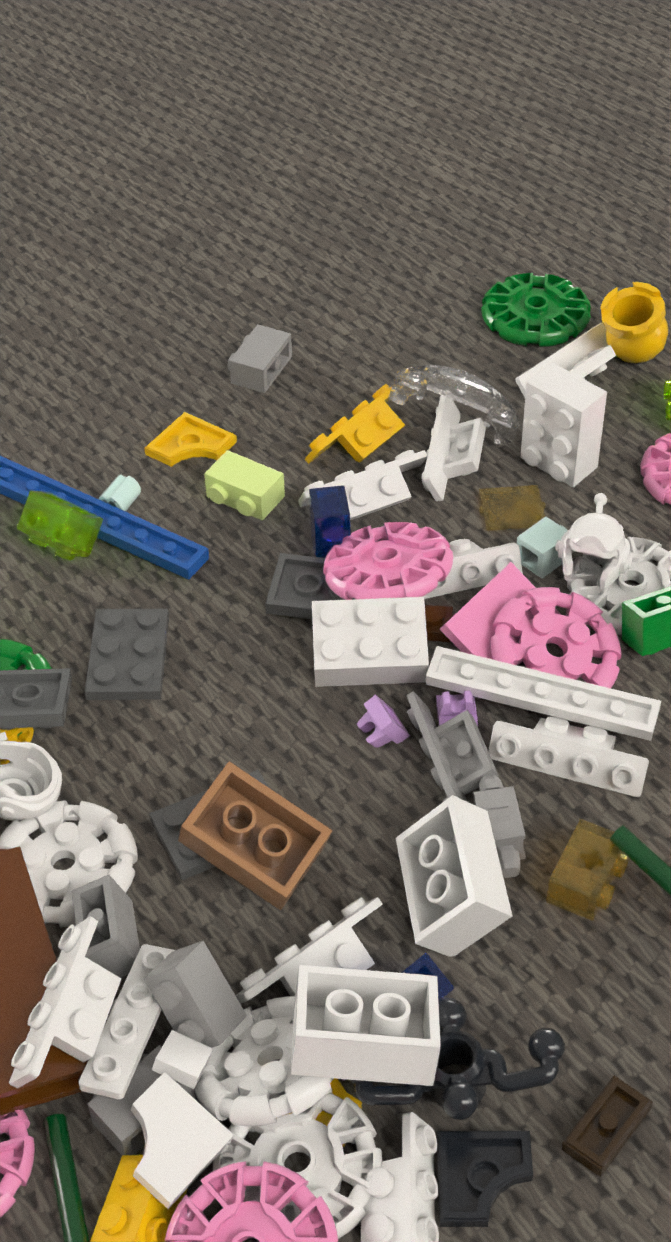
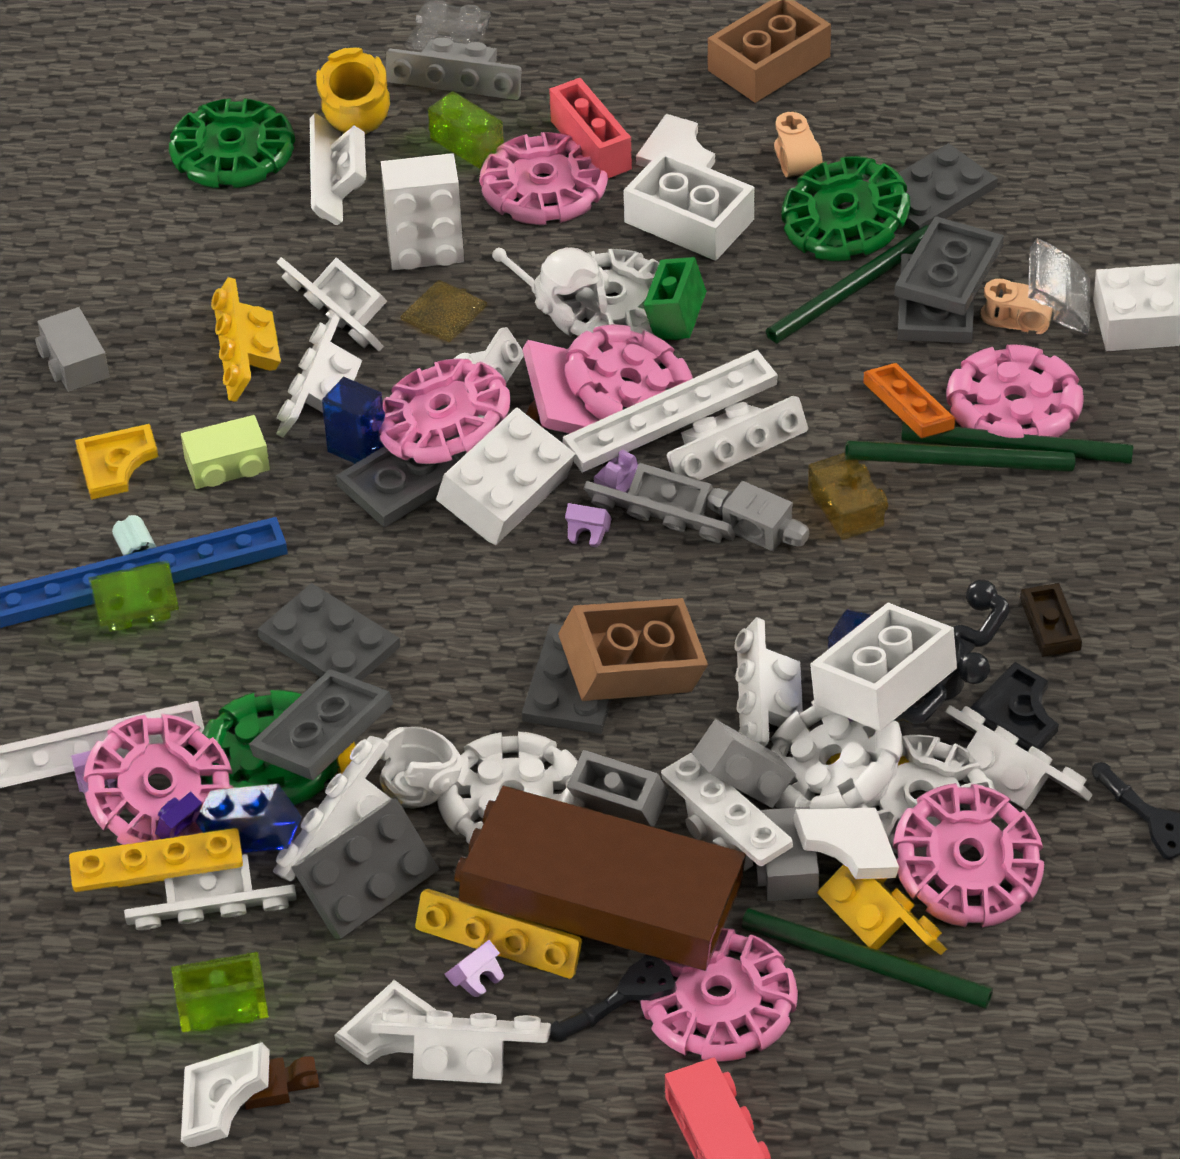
camera: 50 degrees left, 0 degrees up
(71, 1009) = (687, 828): white bracket -> none
(182, 1059) = (788, 797): white tile -> none
(452, 877) = (786, 562): white brick -> none
(461, 388) = (349, 239): clear windscreen -> none
(538, 547) = (519, 314): light aqua brick -> none

